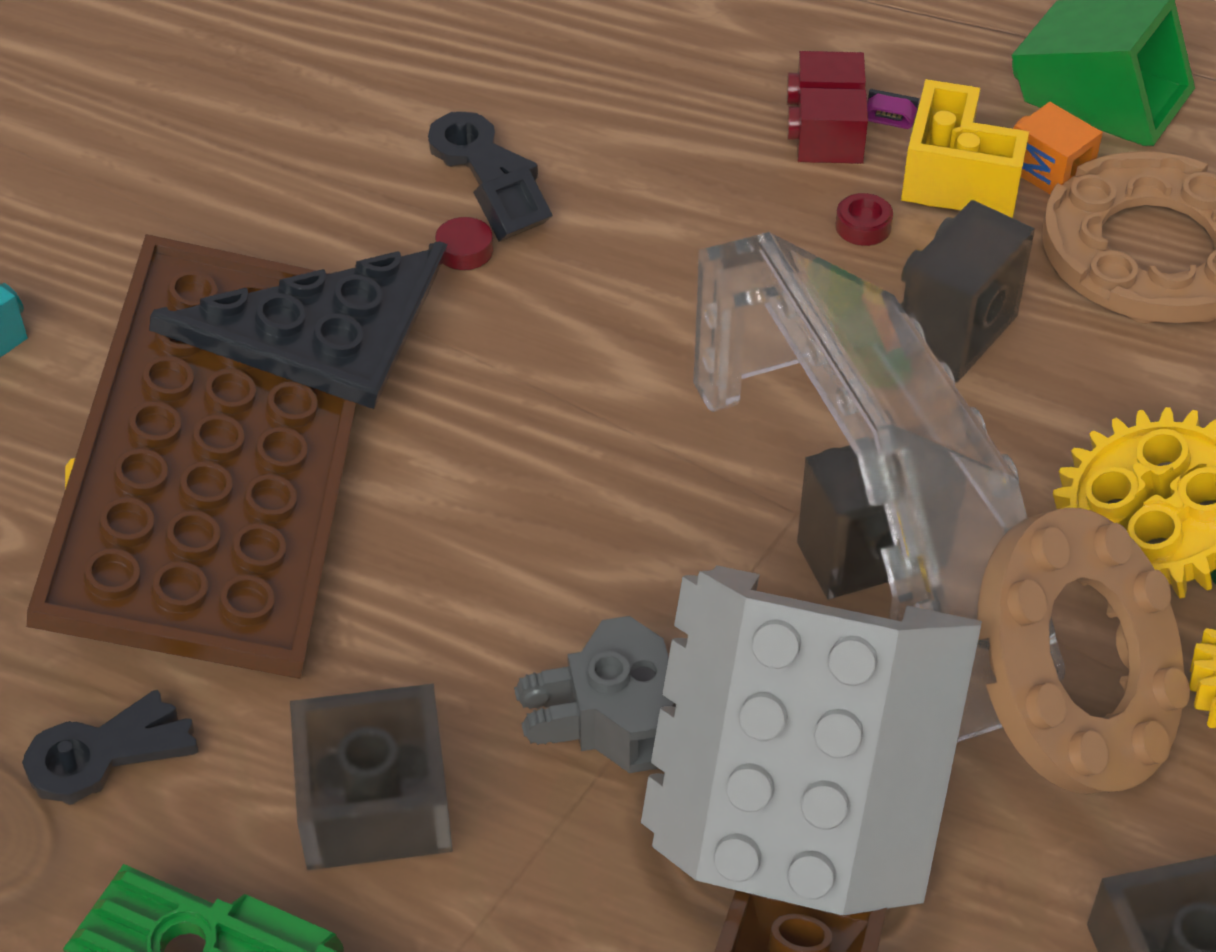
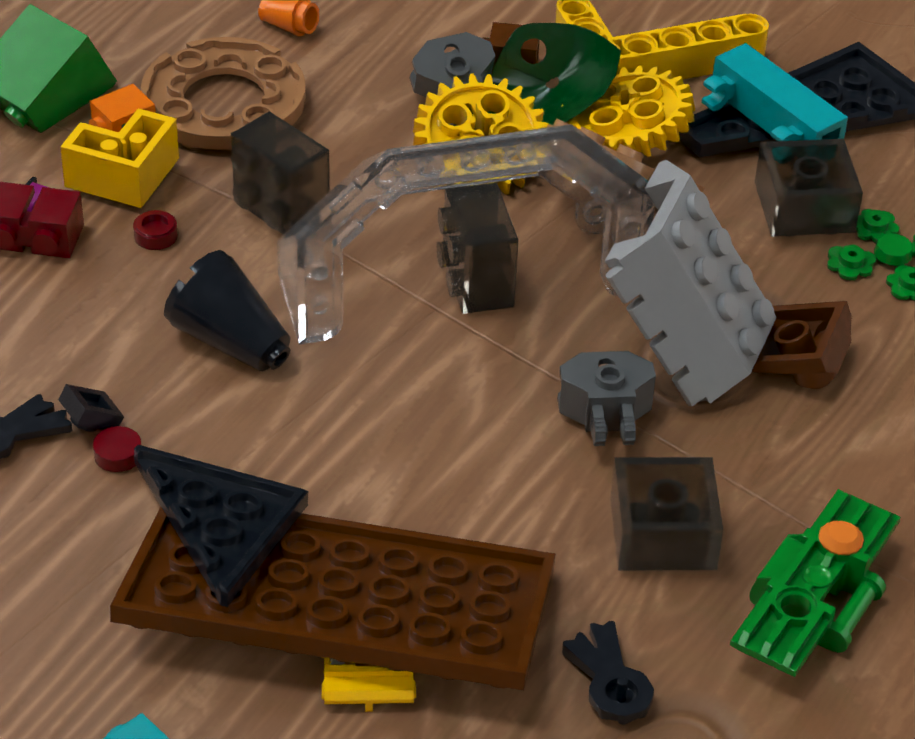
camera: 85 degrees left, 5 degrees down
(664, 300) = (228, 313): none -> black cone

